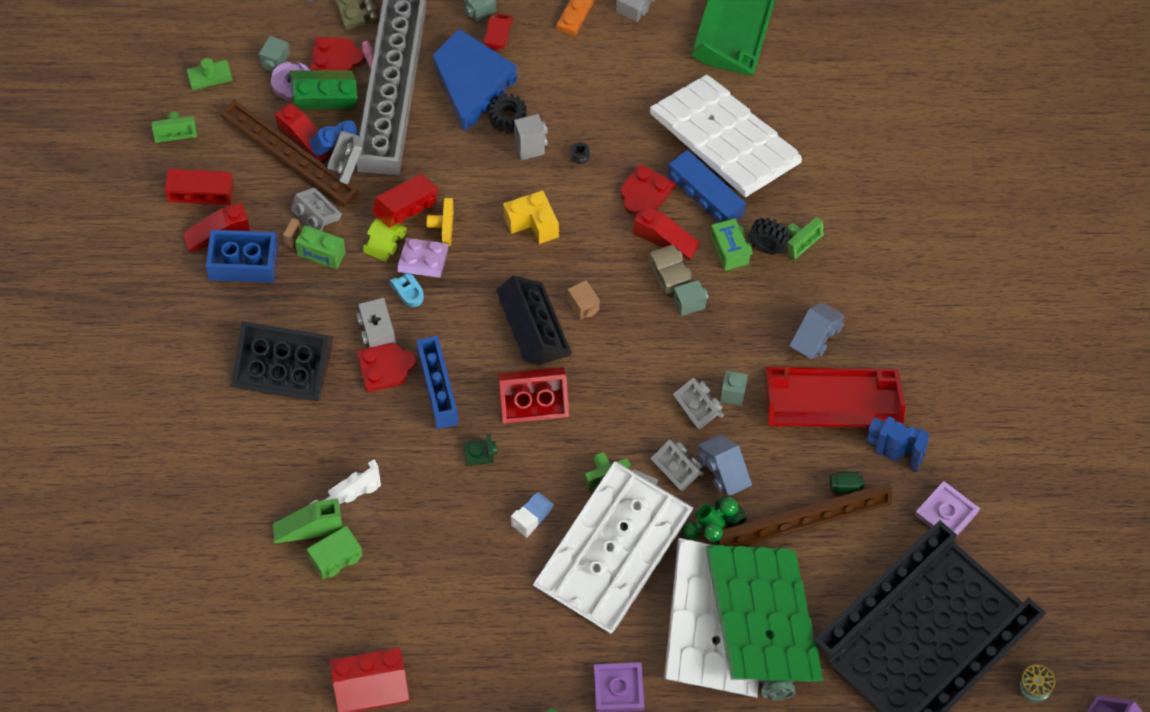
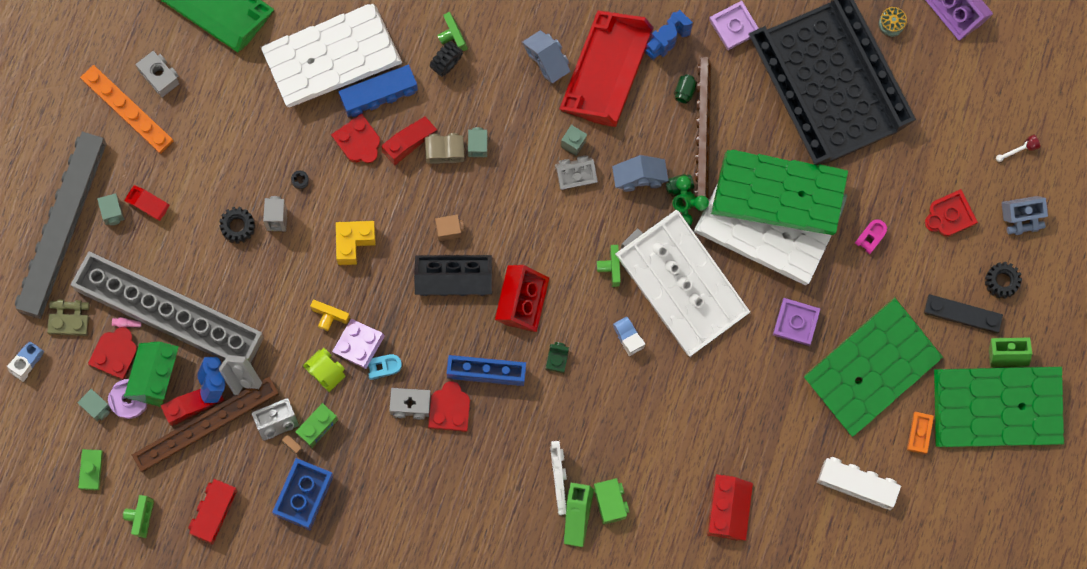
camera: 75 degrees left, 15 degrees up
(226, 218) = (262, 509): red slope -> none
(281, 361) = (415, 491): black slope -> none
(405, 200) = (301, 339): red brick -> none
(471, 76) = (187, 242): blue slope -> none
(677, 464) = (624, 208): light grey bracket -> none
(730, 244) = (439, 92): bright green brick -> none

